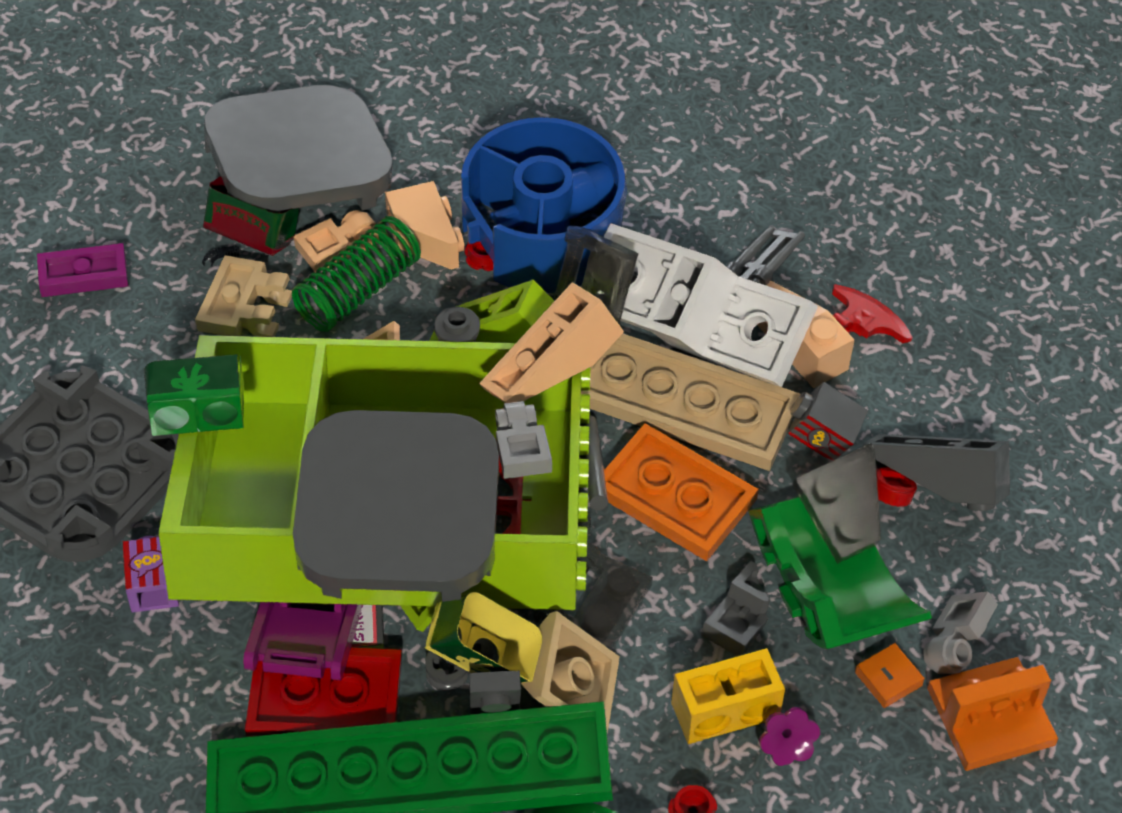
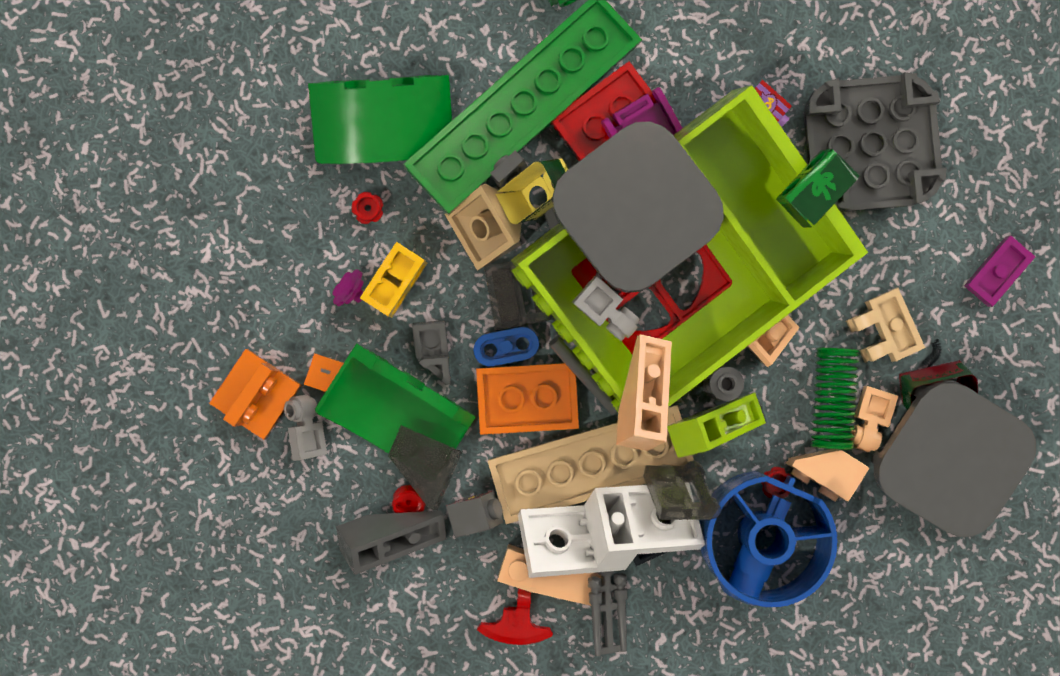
camera: 140 degrees right, 35 degrees up
(656, 553) = (506, 346): none -> blue plate

